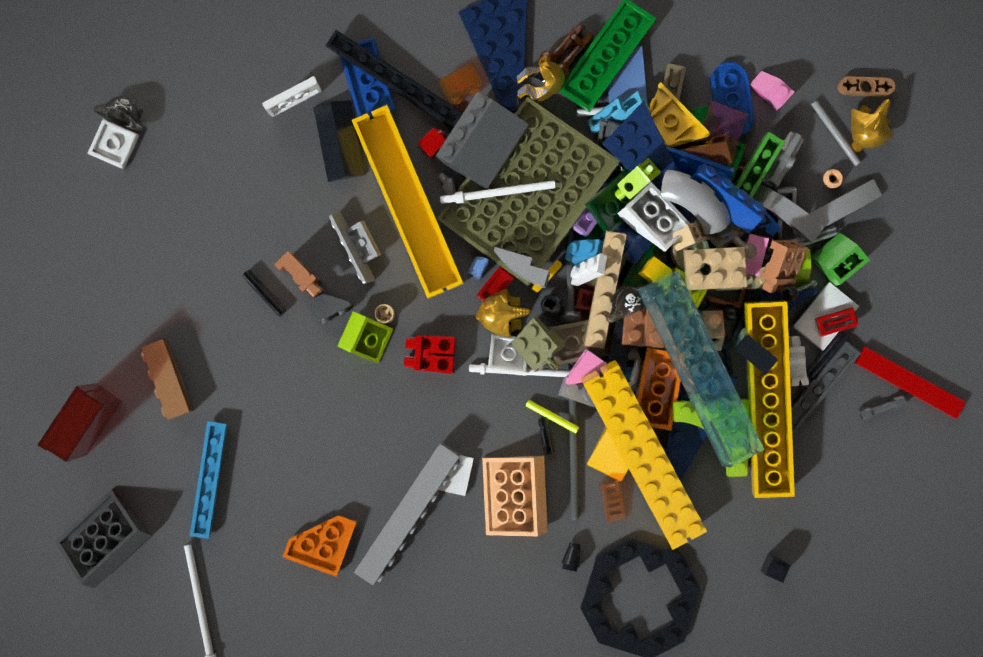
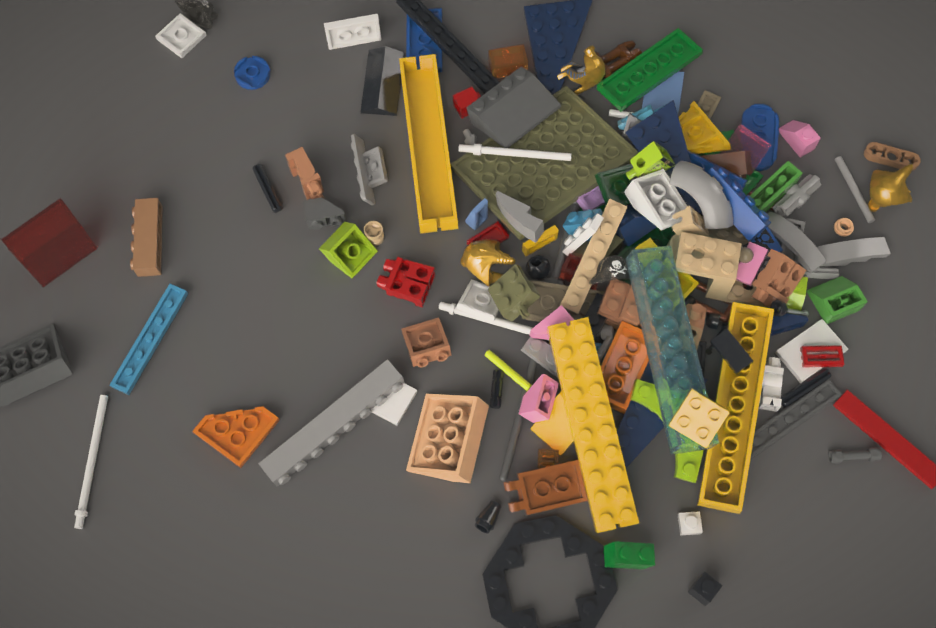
camera: 20 degrees right, 20 degrees down
(202, 167) = (252, 72): none -> blue tile
(468, 411) = (426, 342): none -> nougat plate
(589, 440) = (539, 399): none -> bright pink slope
(616, 518) = (548, 488): none -> dark orange tile
(704, 559) = (629, 555): none -> green brick
(742, 438) = (699, 418): none -> yellow plate
(749, 511) = (690, 523): none -> white plate

